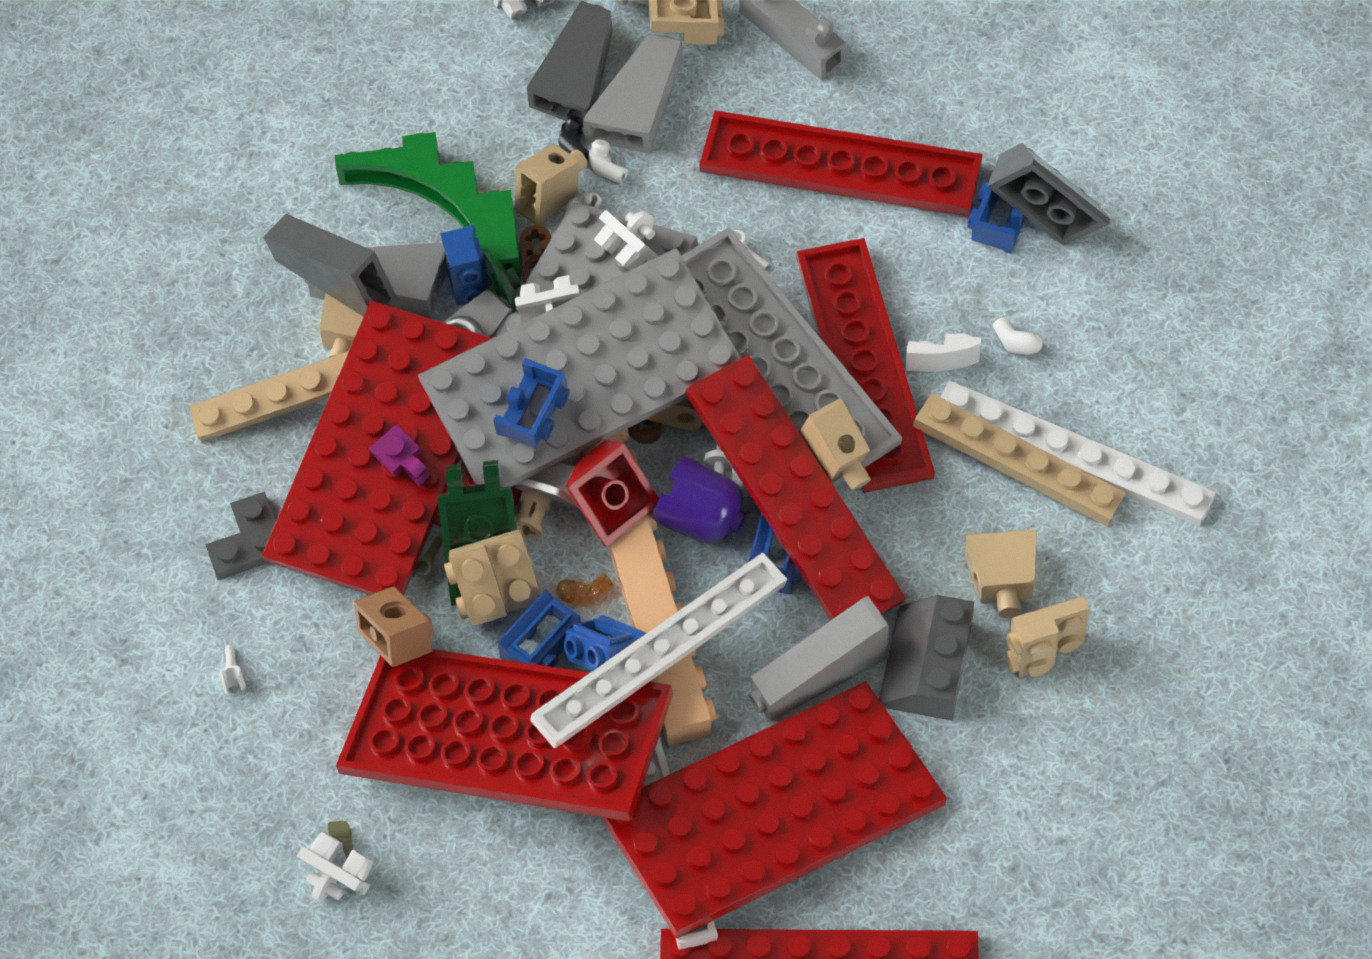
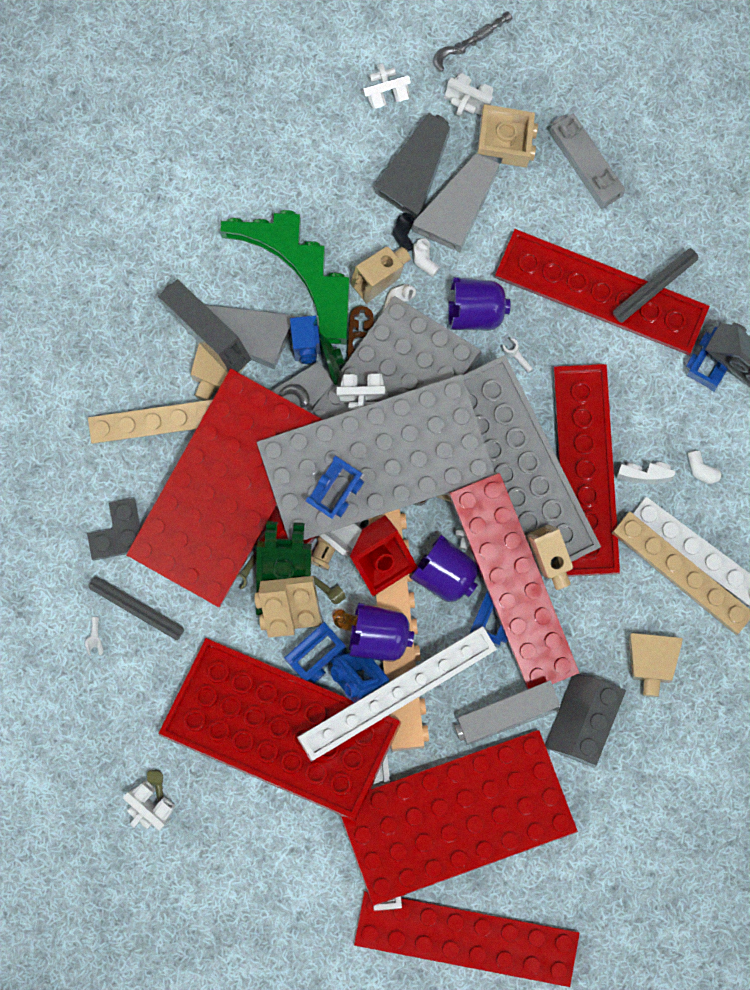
camera: 10 degrees right, 20 degrees up
(285, 625) = (136, 608): none -> dark grey axle
(394, 626) = (213, 644): medium nougat brick -> none
(400, 453) = (233, 499): magenta plate -> none
(554, 565) = (336, 595): none -> olive hand
(624, 579) = (380, 633): none -> dark purple cylinder
(637, 228) = (432, 347): white hips -> none
(683, 194) = (477, 304): none -> dark purple cylinder
(907, 139) = (655, 285): none -> dark grey axle
(1042, 633) = (665, 727): tan plate -> none

